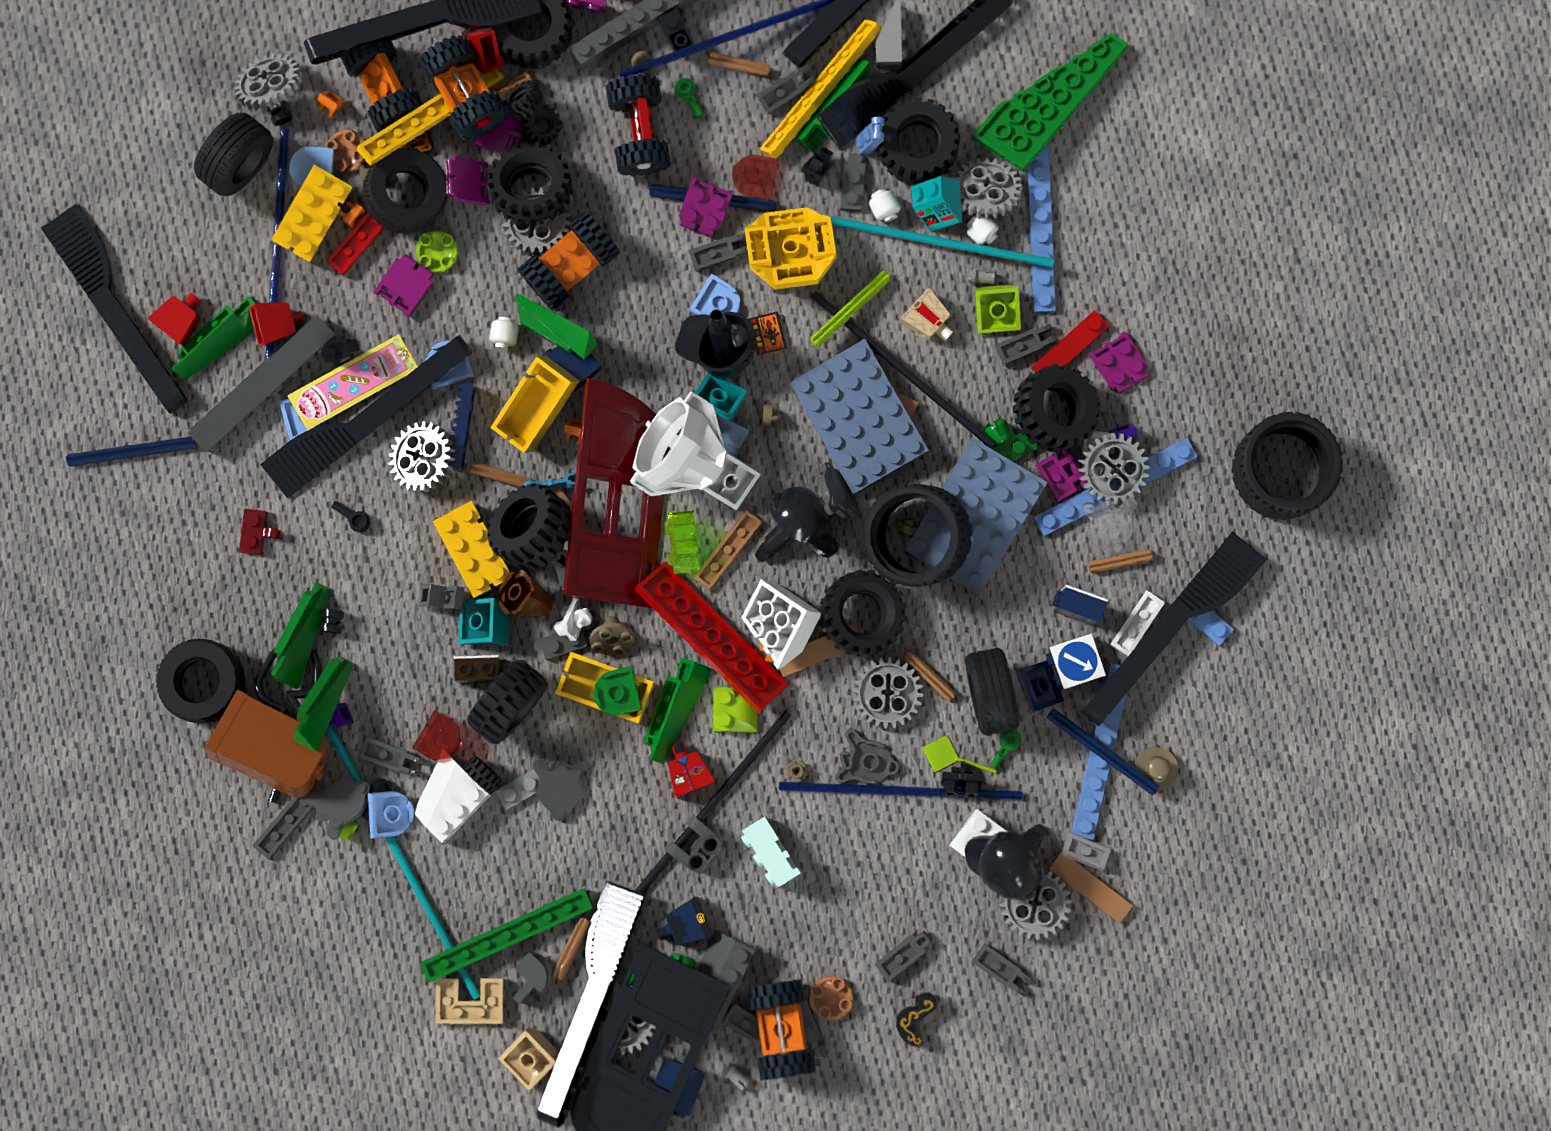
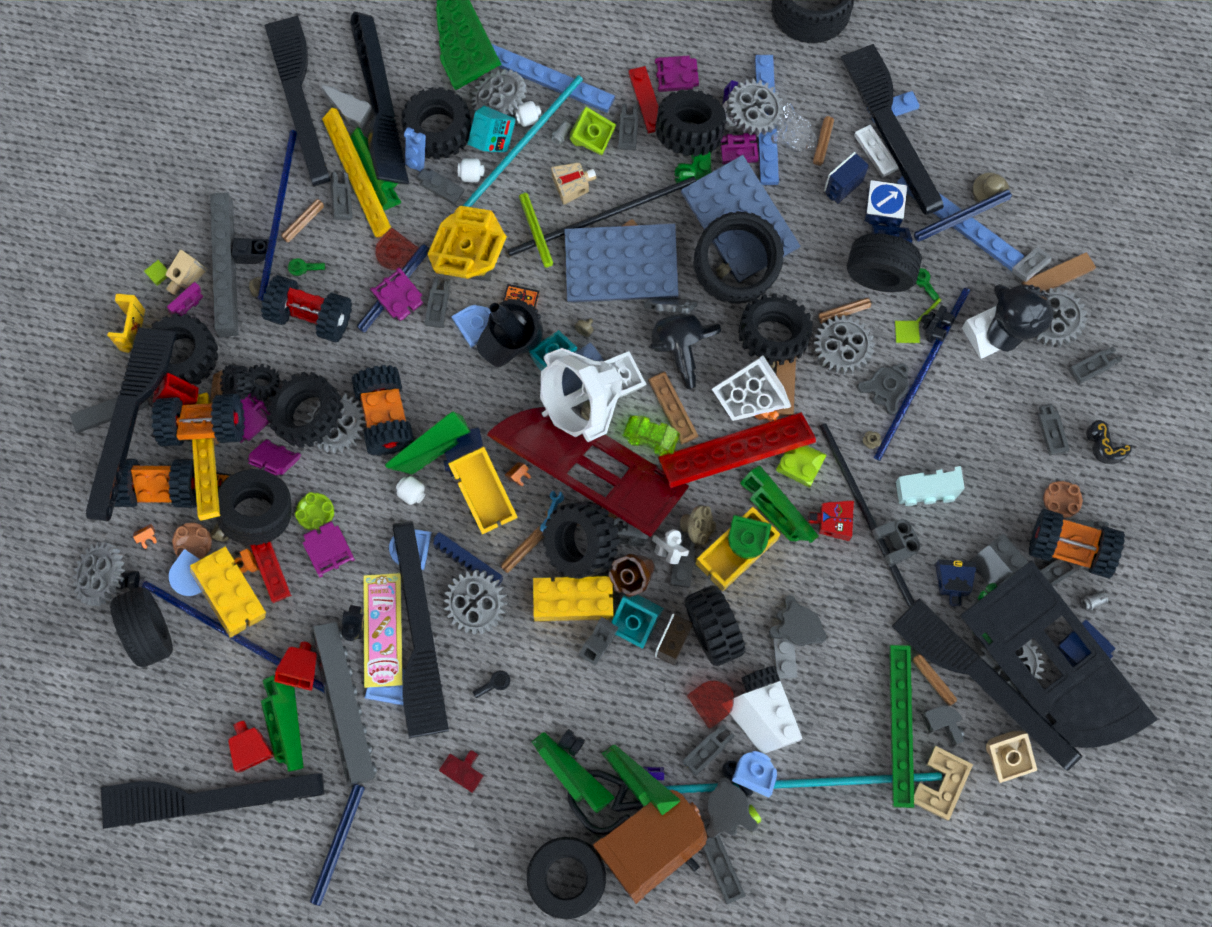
camera: 65 degrees left, 10 degrees down
(818, 166) = (414, 201): black hips -> none

